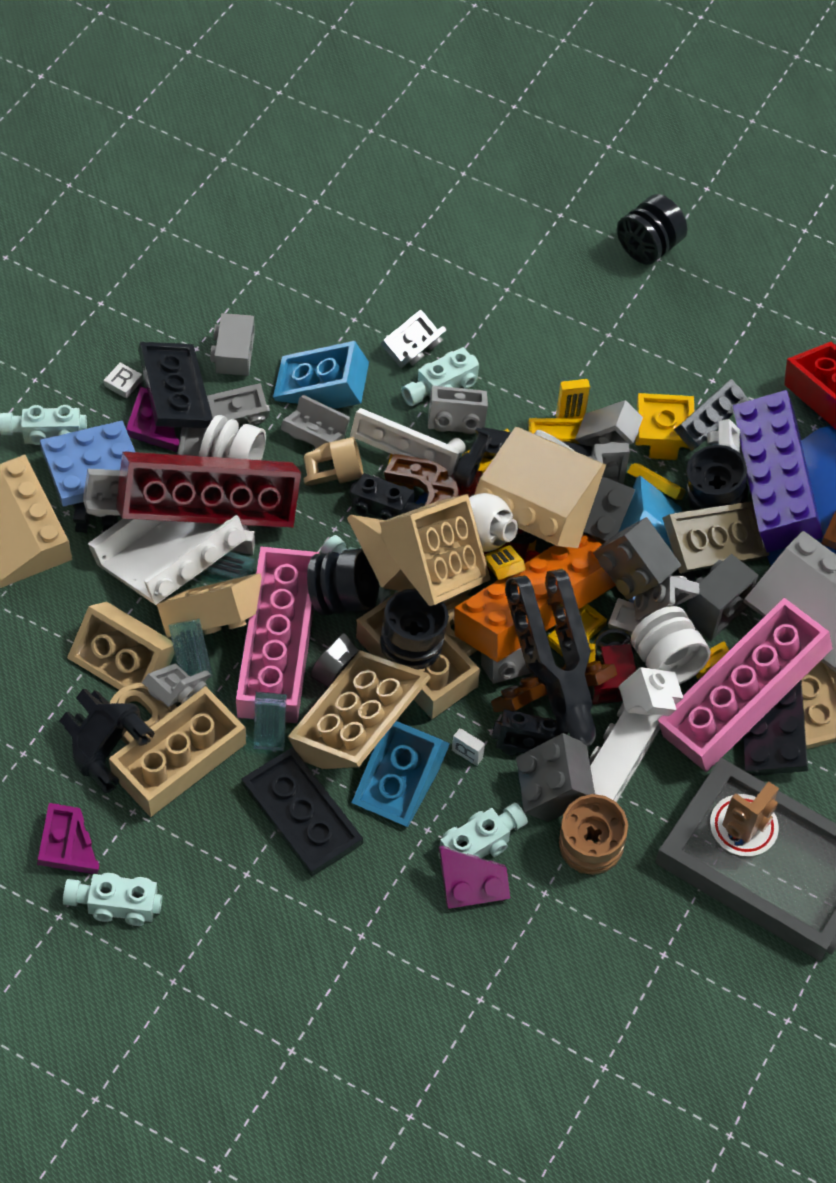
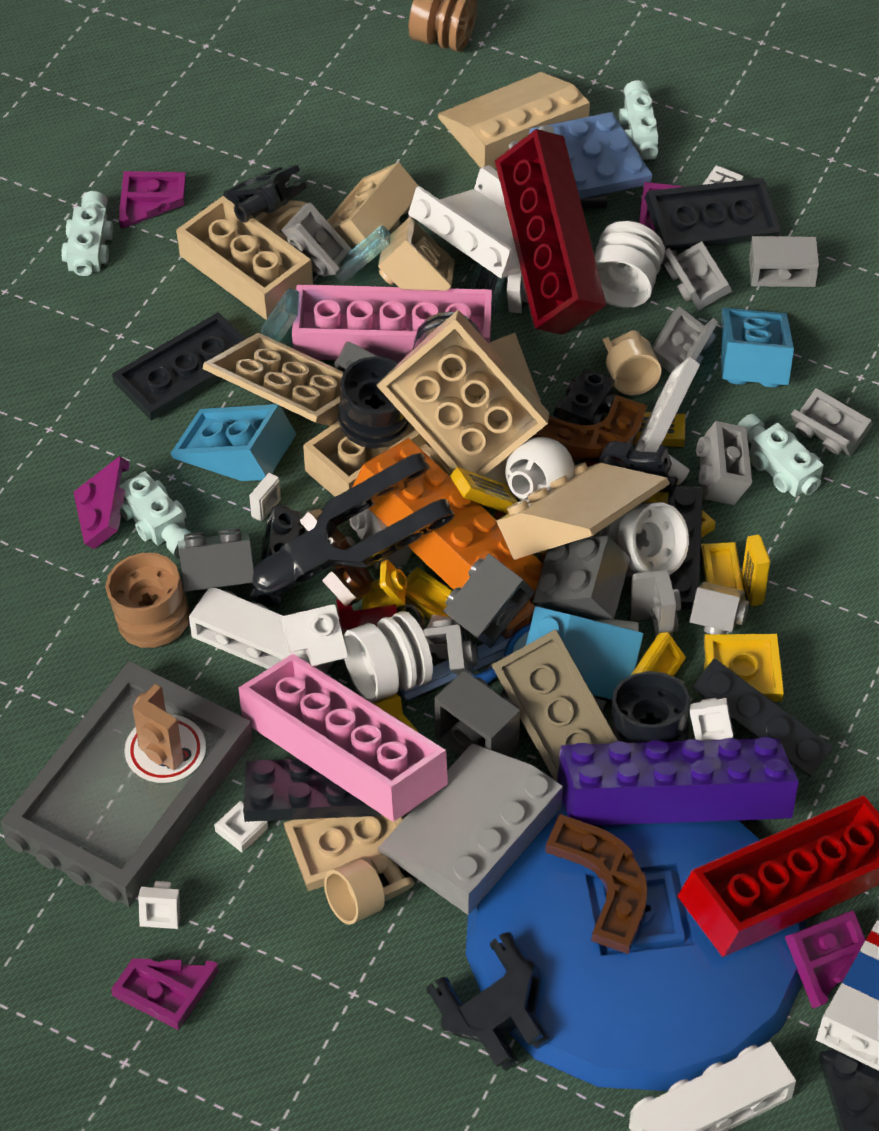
camera: 90 degrees right, 5 degrees down
(805, 782) = (238, 832): none -> white tile

